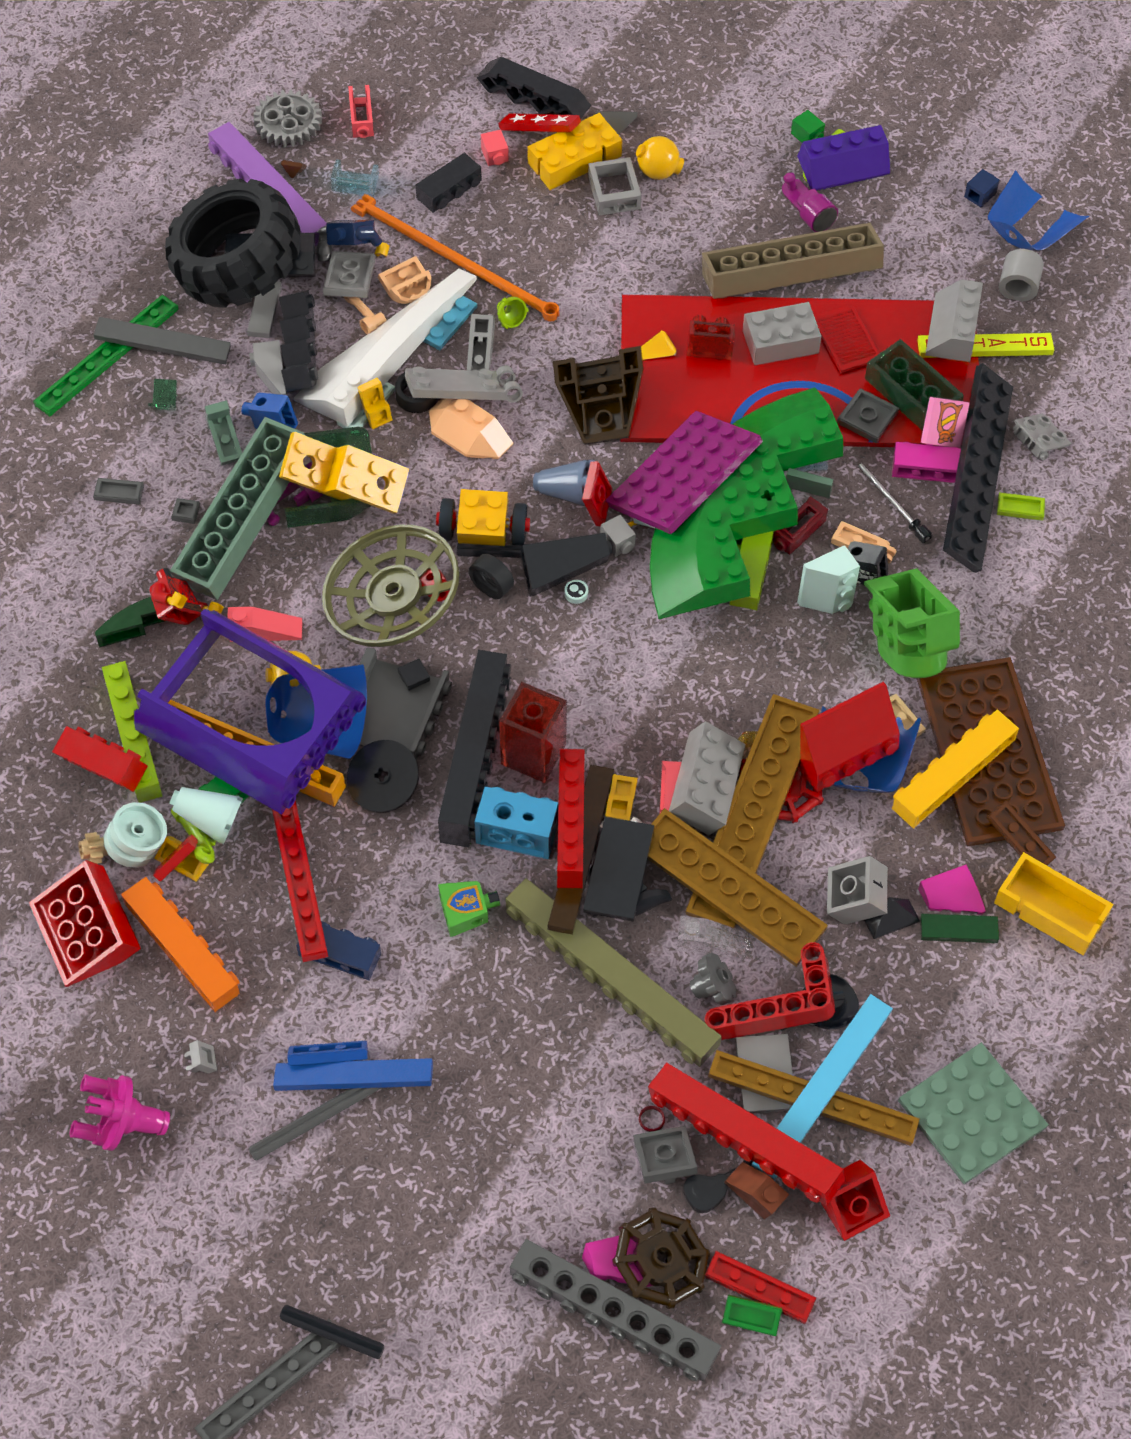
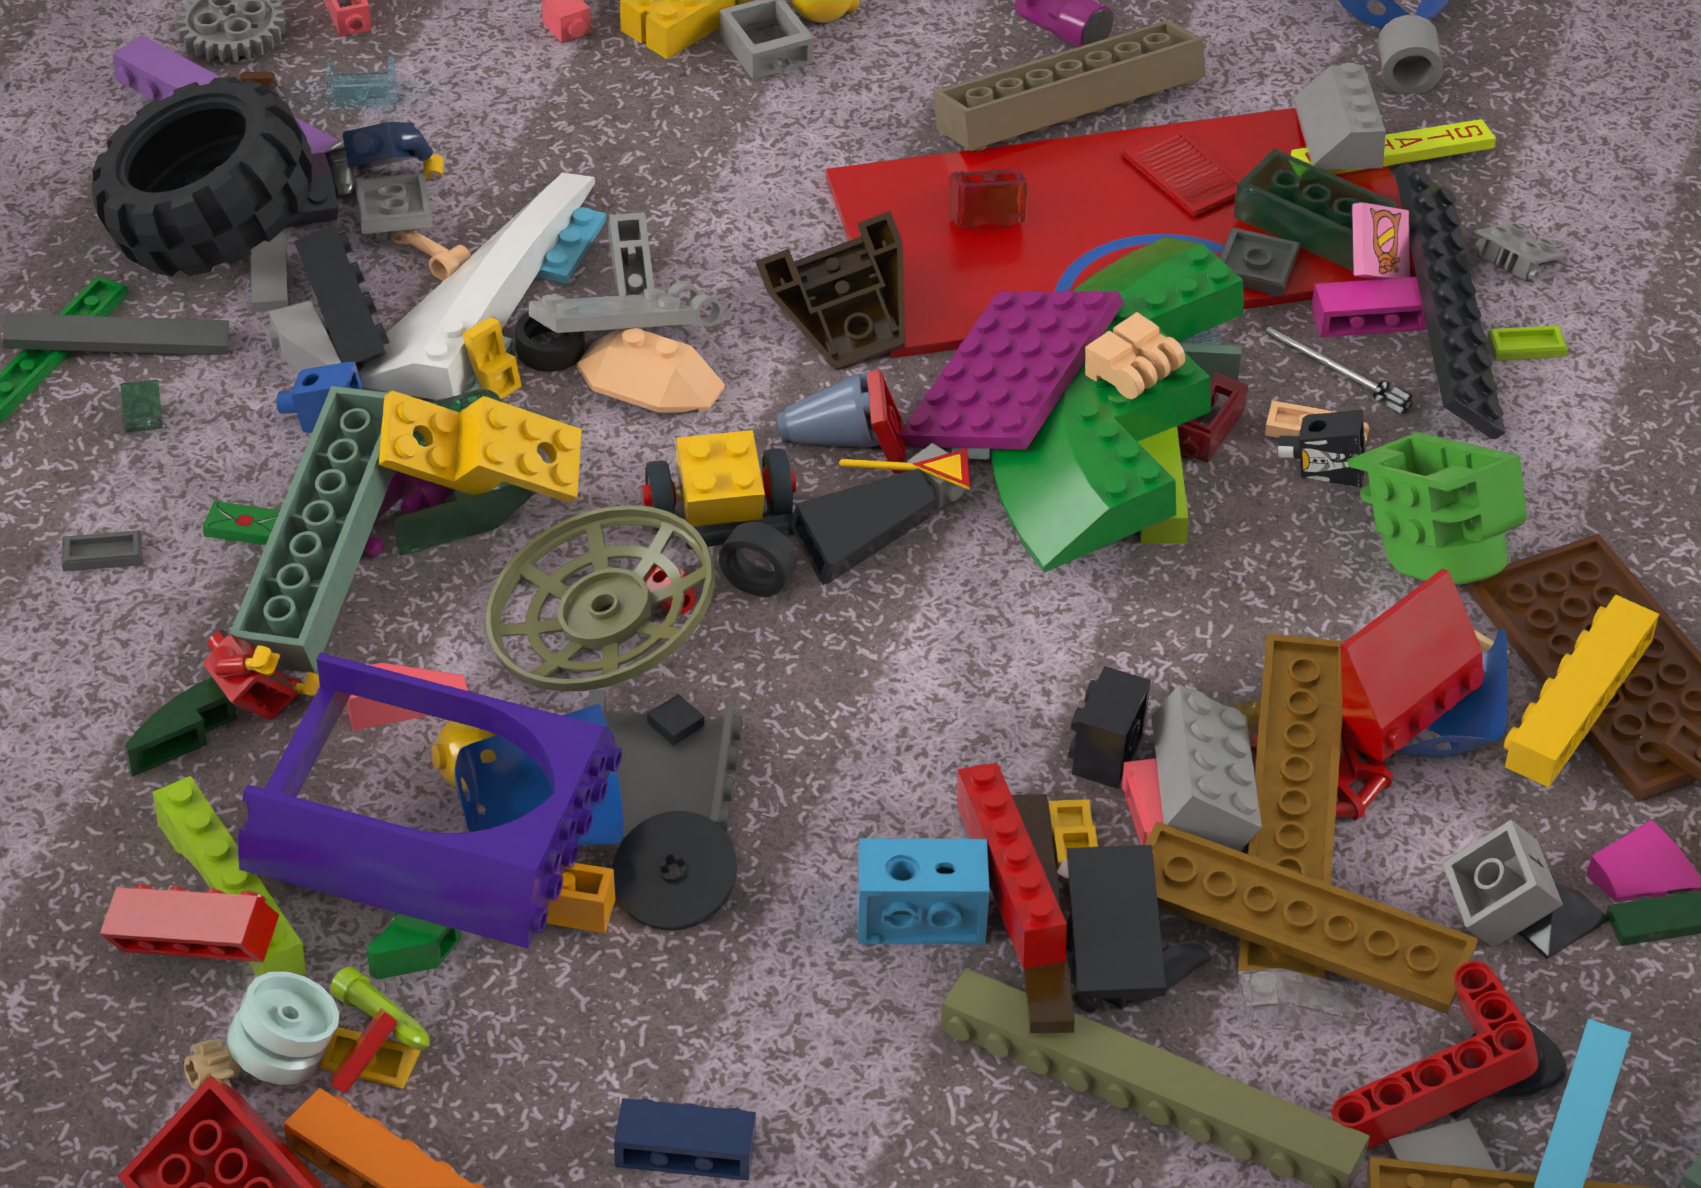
camera: 15 degrees left, 15 degrees down
(185, 511) = (223, 559): dark grey tile -> none
(200, 486) = (240, 522): none -> green tile
(207, 810) = (399, 967): light aqua cone -> none
(223, 432) = (254, 435): sand green bracket -> none
(300, 885) = (588, 1047): red tile -> none
(367, 206) = (722, 204): orange hinge -> none
(406, 281) = (485, 200): light nougat slope -> none
(448, 182) = (510, 67): black brick -> none
(465, 905) = (875, 1032): bright green torso -> none
(474, 748) = (817, 802): black brick -> none
(514, 312) = (665, 213): lime piece -> none
(533, 732) = (910, 748): clear red brick -> none
(576, 591) = (895, 564): light aqua tile -> none
(622, 534) = (949, 467): none -> yellow piece
(658, 347) = (913, 222): yellow sticker -> none
(661, 734) = (1109, 726): none -> black brick
(713, 980) = (1321, 1060): dark grey plant -> none
(743, 483) = (1133, 356): none -> light nougat legs
(781, 333) = (1090, 175): light grey brick -> none
(829, 582) = (1293, 472): light aqua slope -> none

